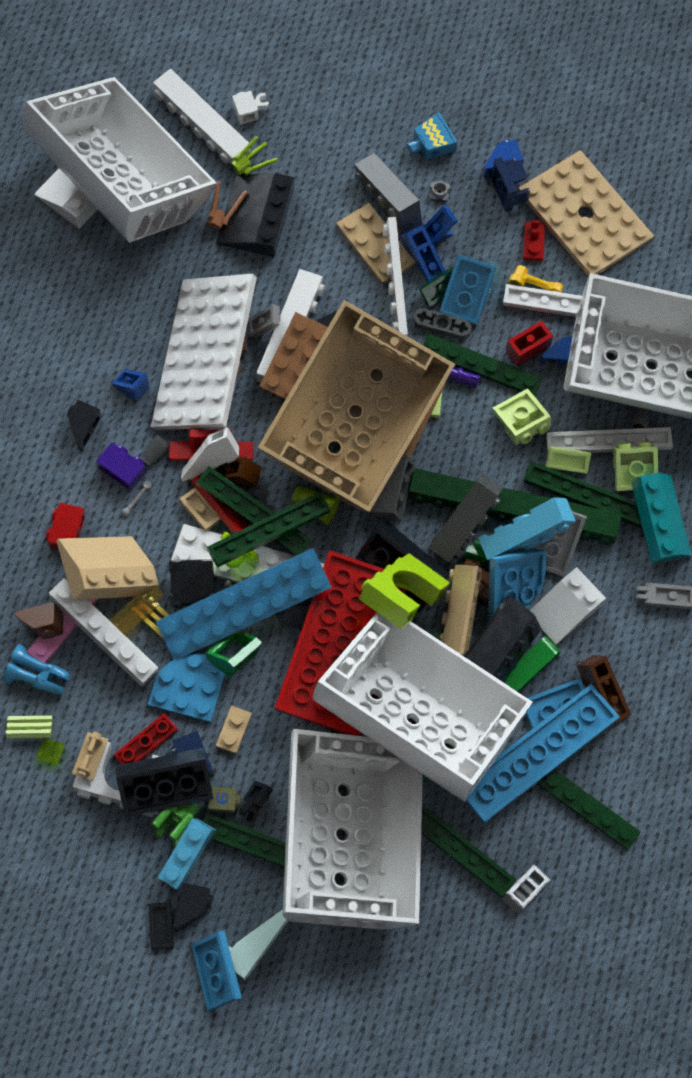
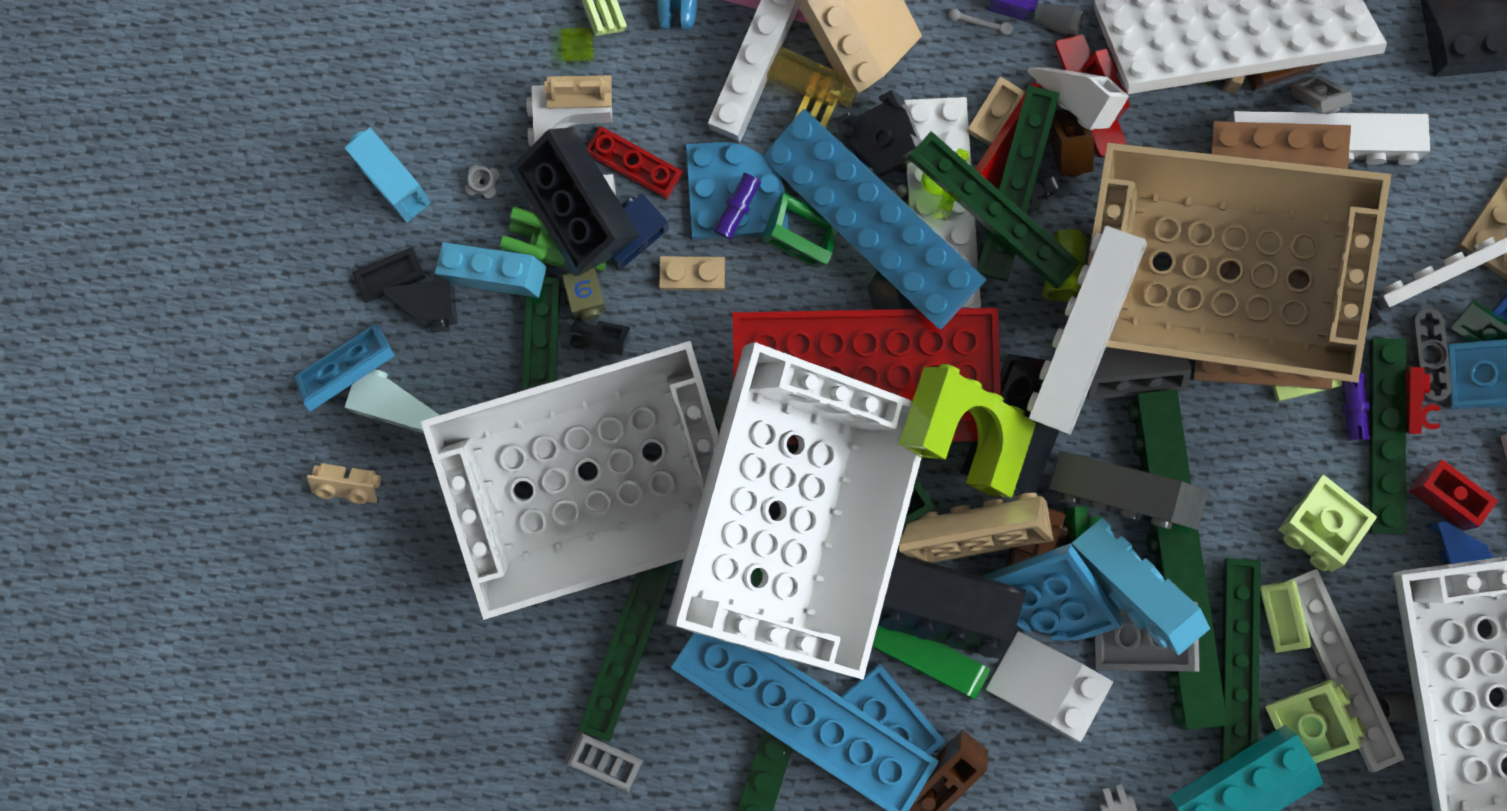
camera: 75 degrees right, 10 degrees up
(96, 900) = (387, 174): none -> medium azure window
(120, 837) = (478, 173): none -> light grey plate
(203, 684) = (737, 206): none -> dark purple pin
(298, 989) = (329, 482): none -> tan hinge
(367, 500) = (1087, 329): none -> white brick
(458, 337) = (1416, 386): none -> red plate

